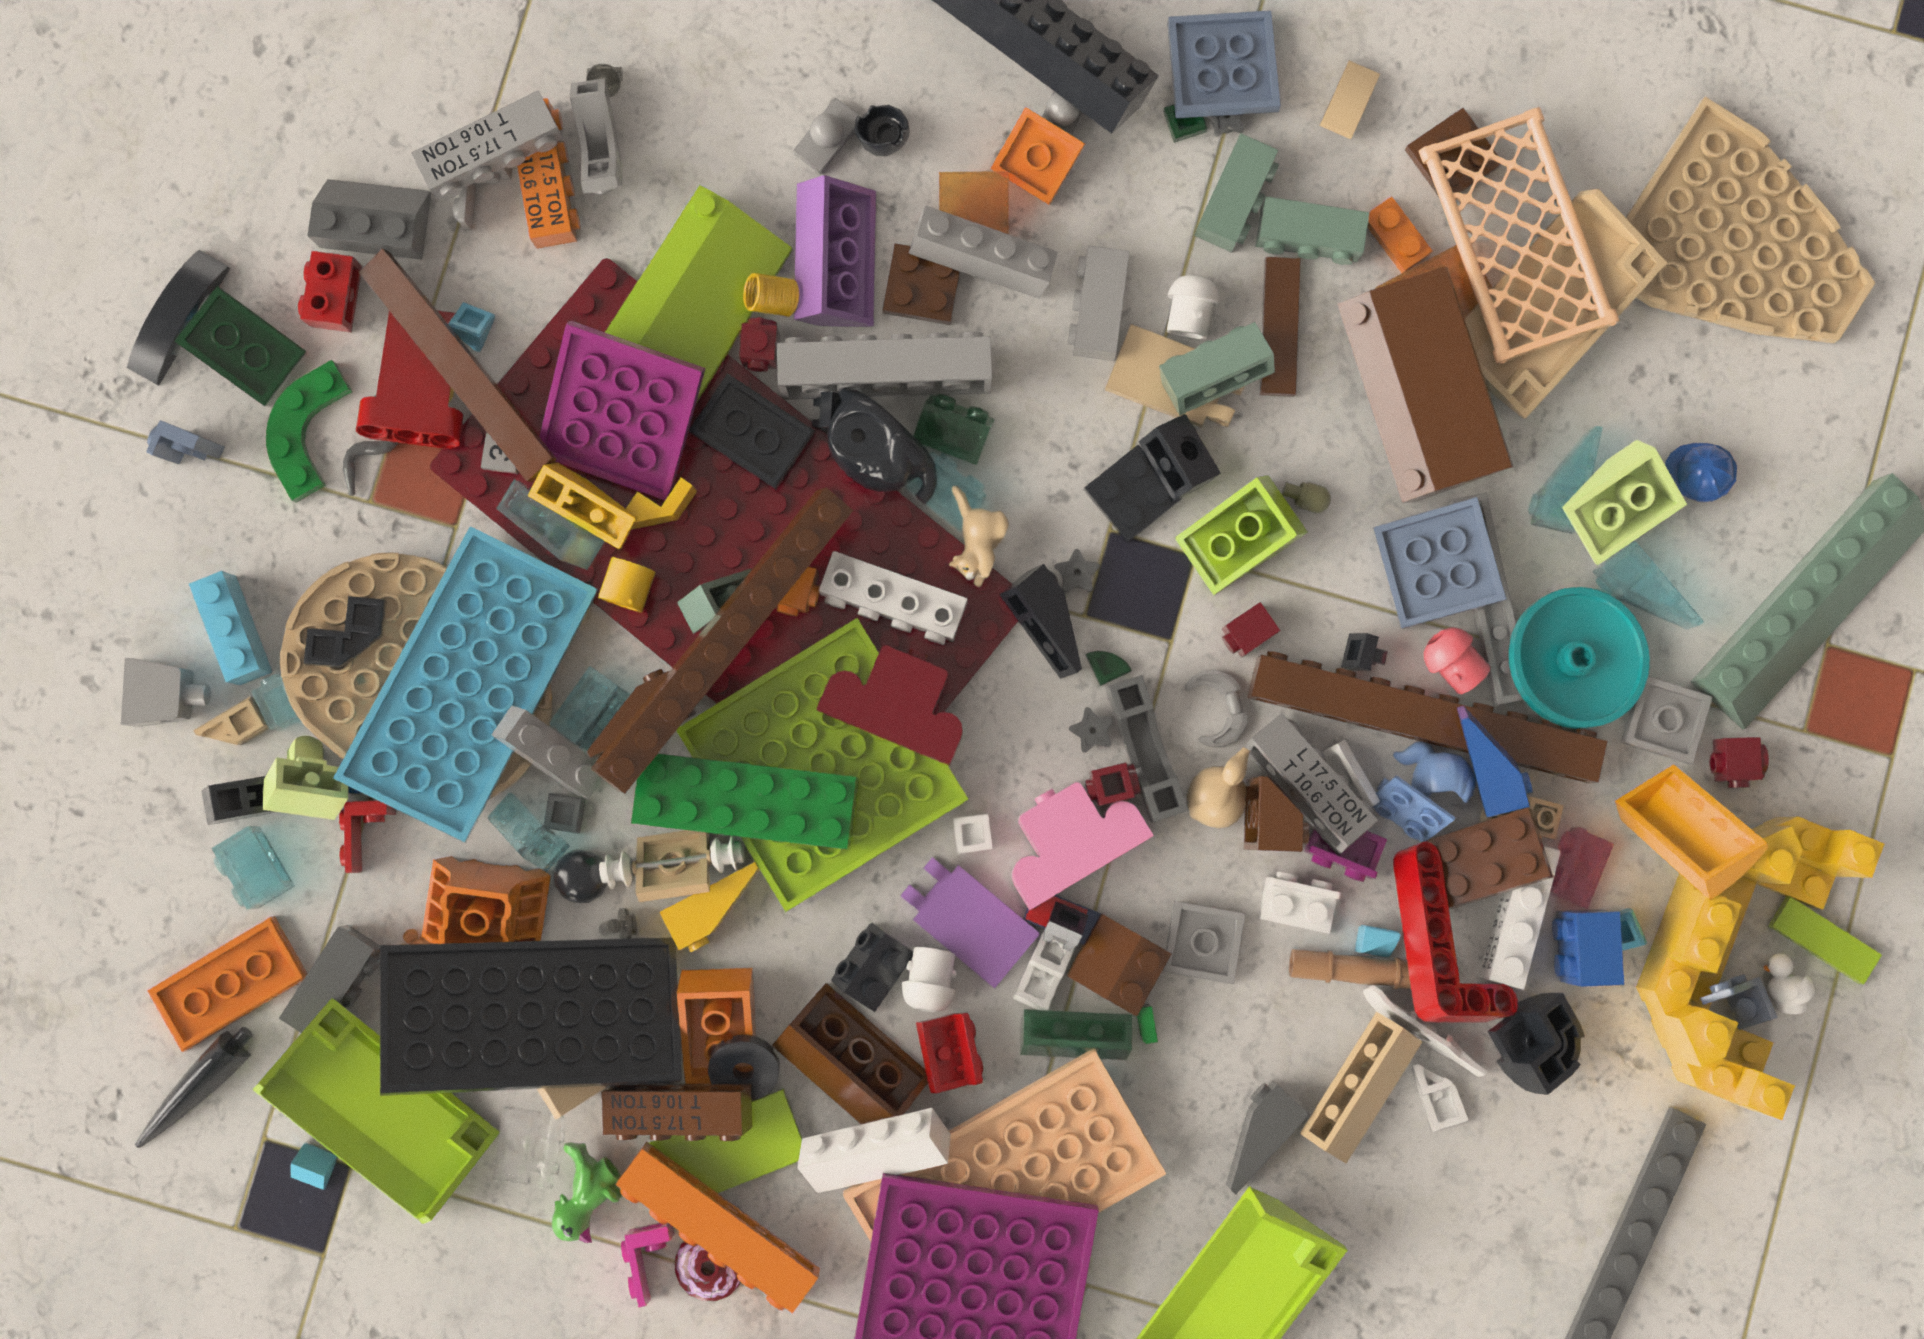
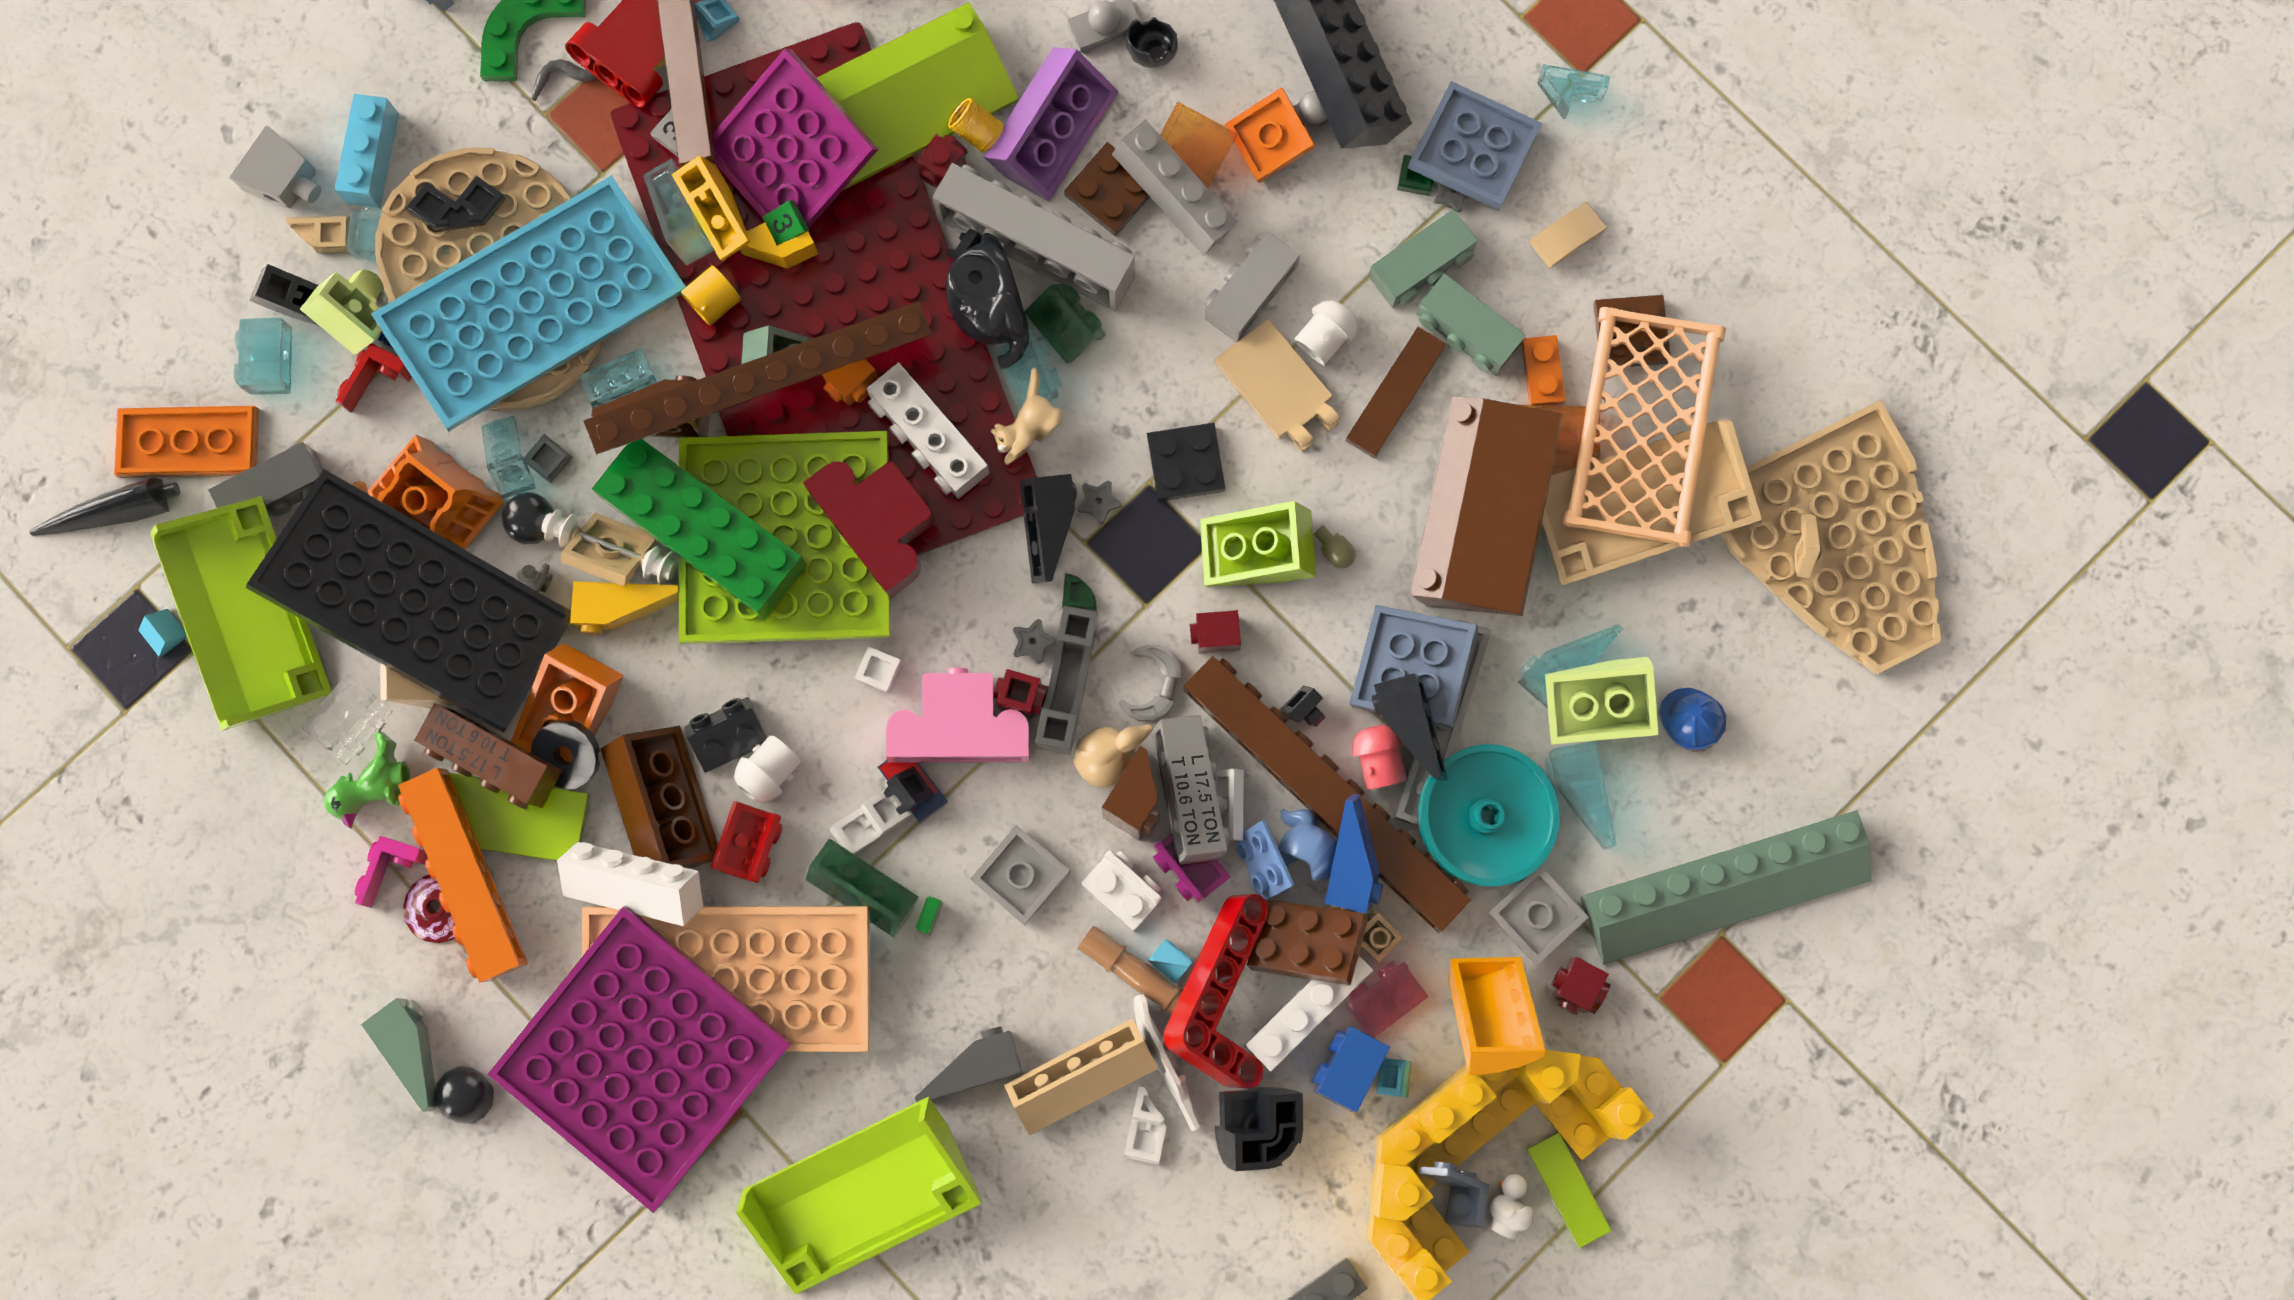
camera: 30 degrees right, 5 degrees down
(548, 751) = (560, 393): light grey brick -> none
(656, 481) = (785, 222): none -> green tile
(751, 431) = (893, 229): black tile -> none
(971, 922) = (832, 744): medium lavender tile -> none
(1119, 964) = (934, 850): reddish brown slope -> none
(1179, 457) = (1242, 451): black brick -> none
(1217, 368) = (1316, 393): sand green brick -> none
(1465, 611) = (1408, 714): none -> black slope
(1722, 266) = (1808, 546): none -> tan tile

